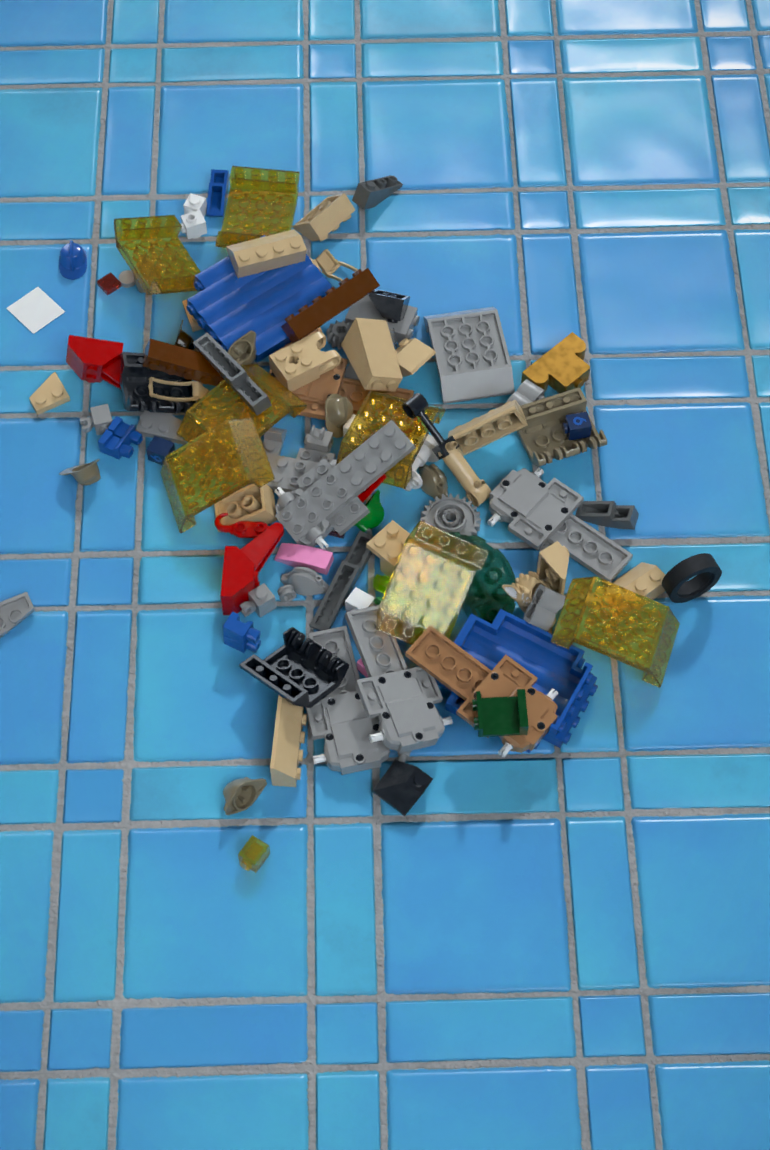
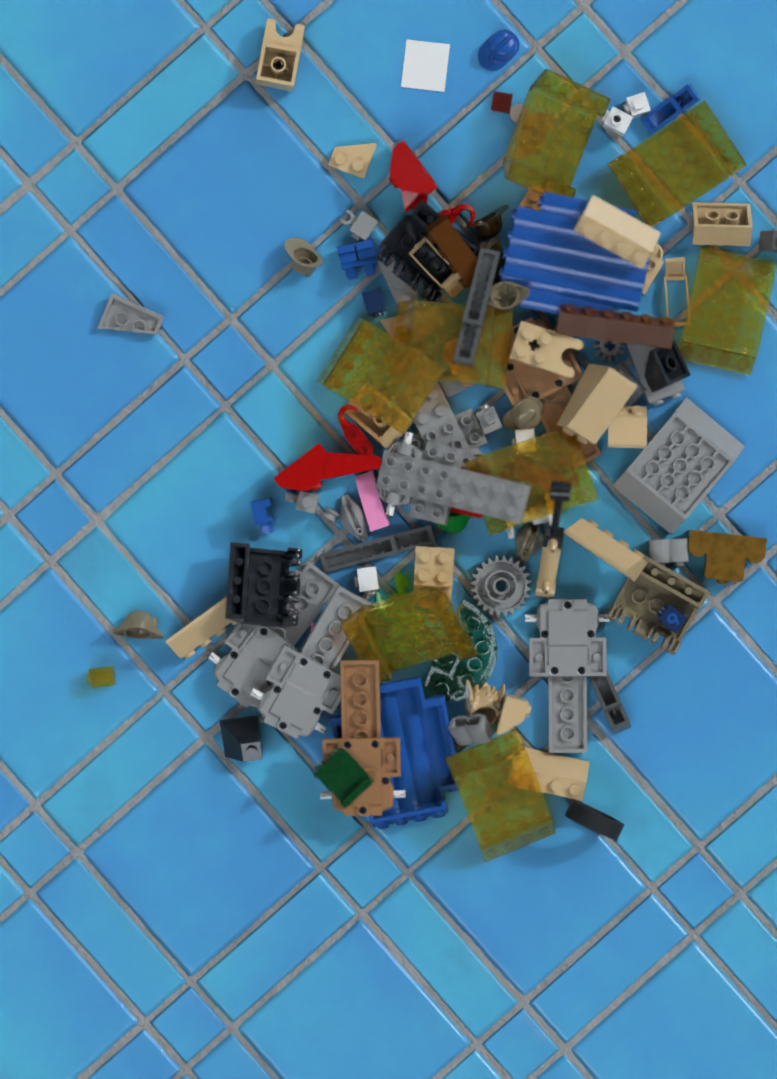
camera: 45 degrees right, 30 degrees up
(390, 250) = (727, 310): none -> clear yellow slope

